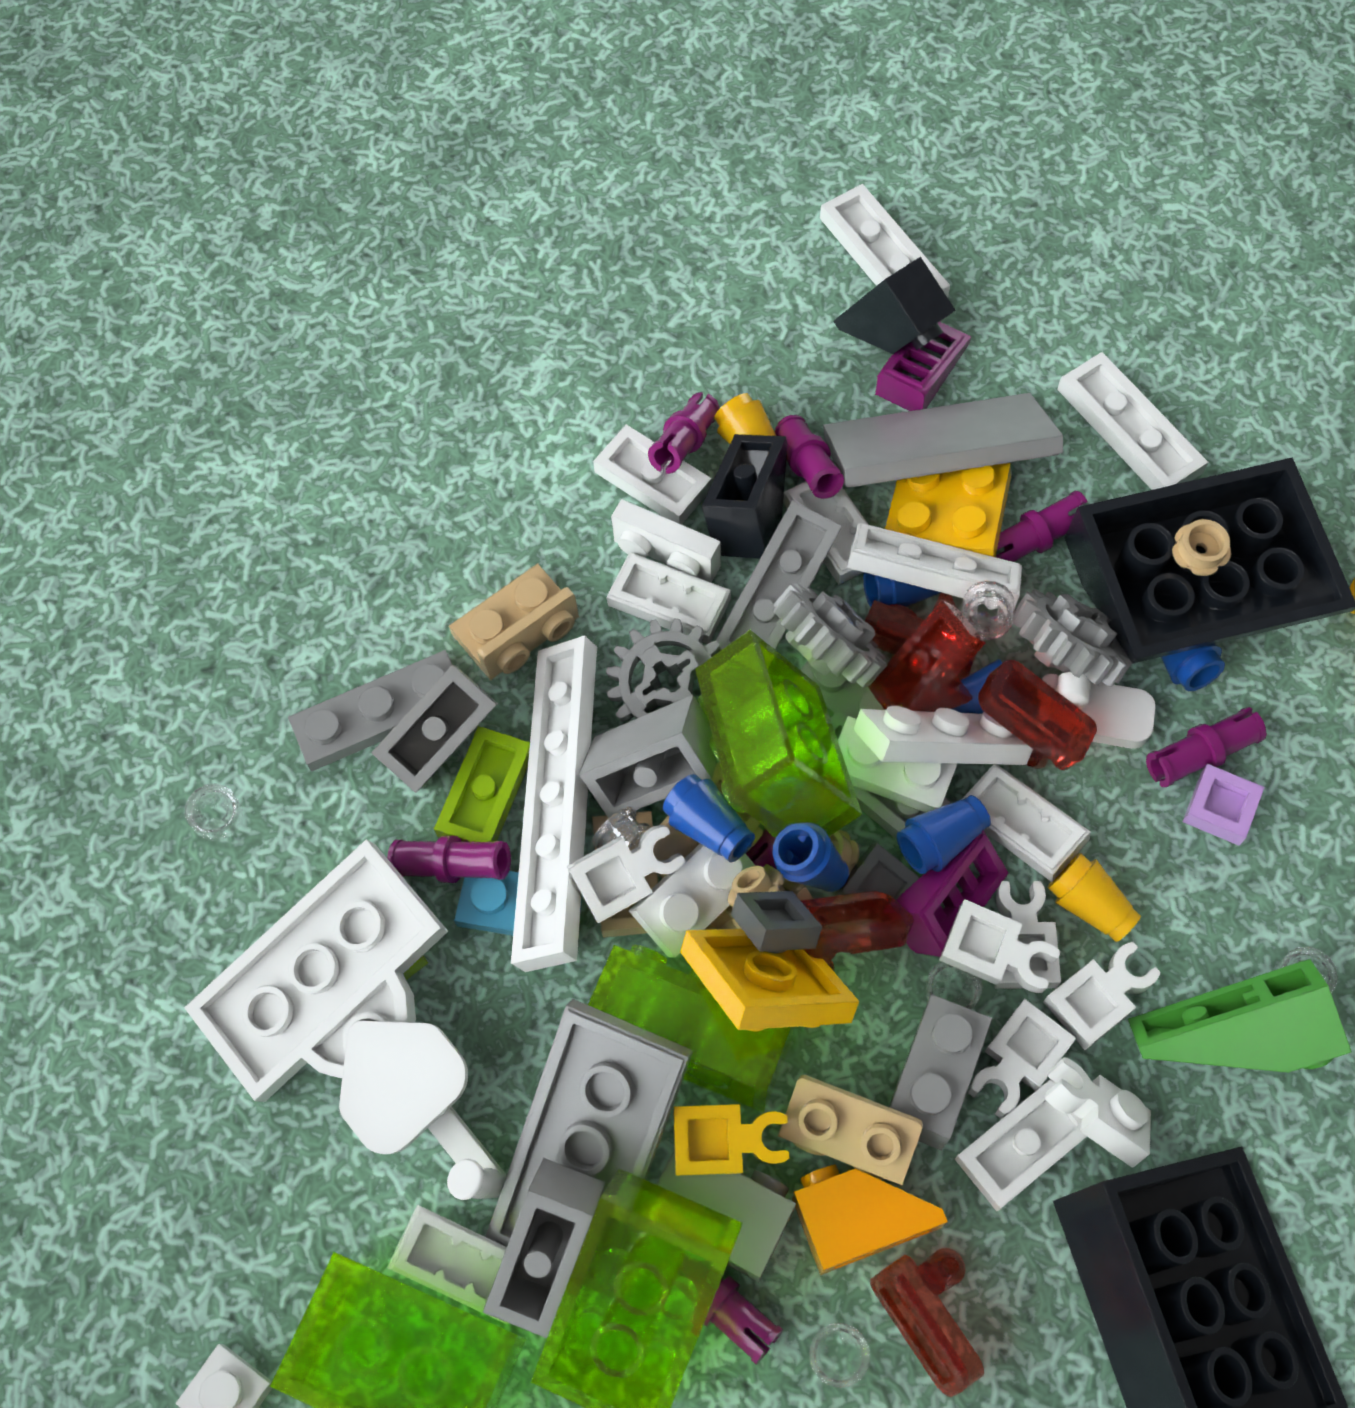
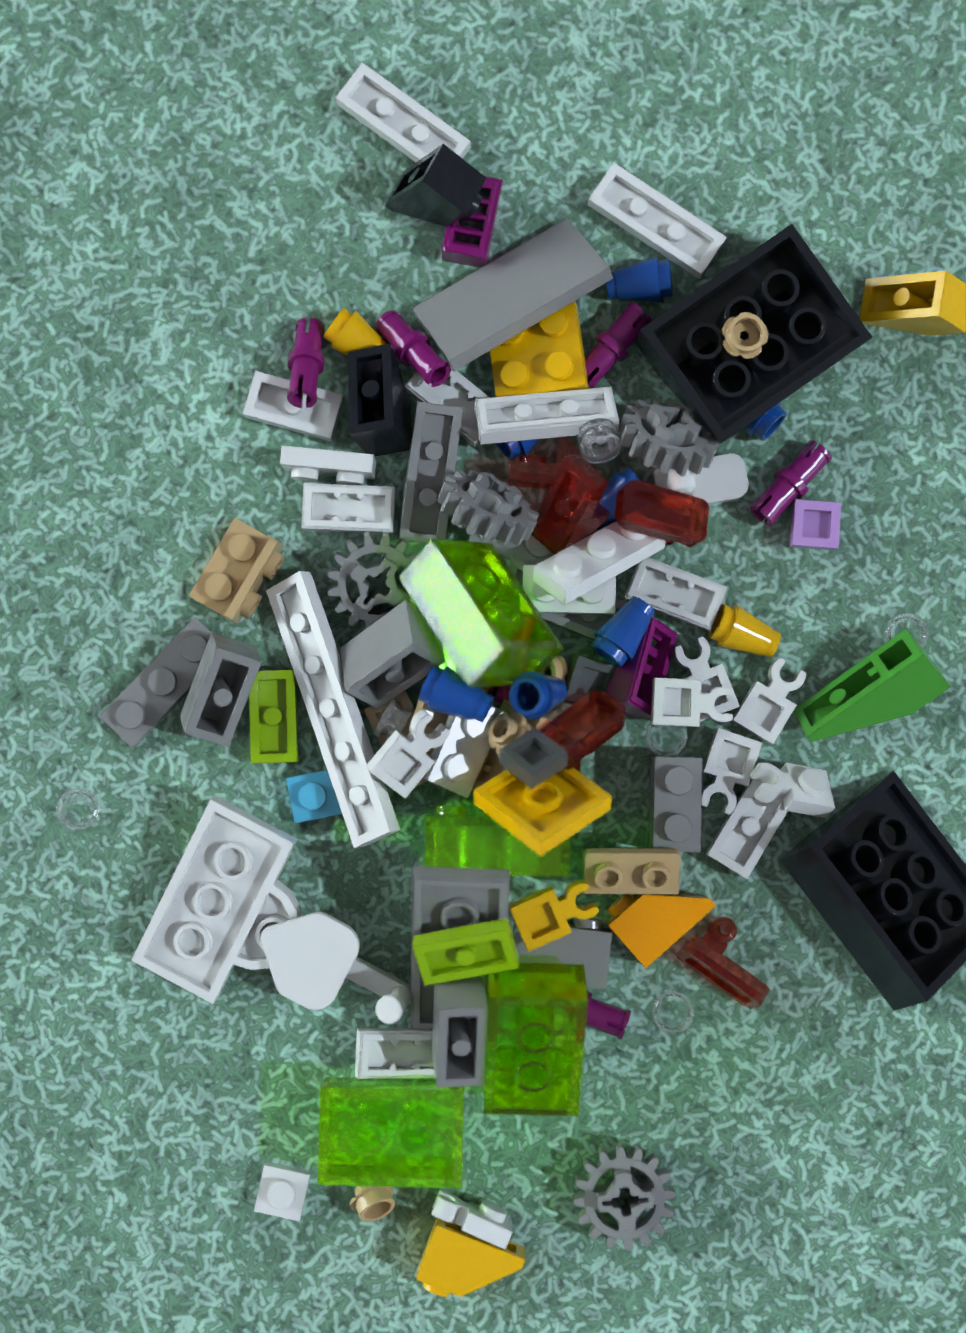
camera: 20 degrees left, 20 degrees up
(450, 859) = (272, 781): magenta pin -> none
(595, 1137) = (465, 952): none -> lime plate
(1094, 476) = (642, 281): none -> blue cone

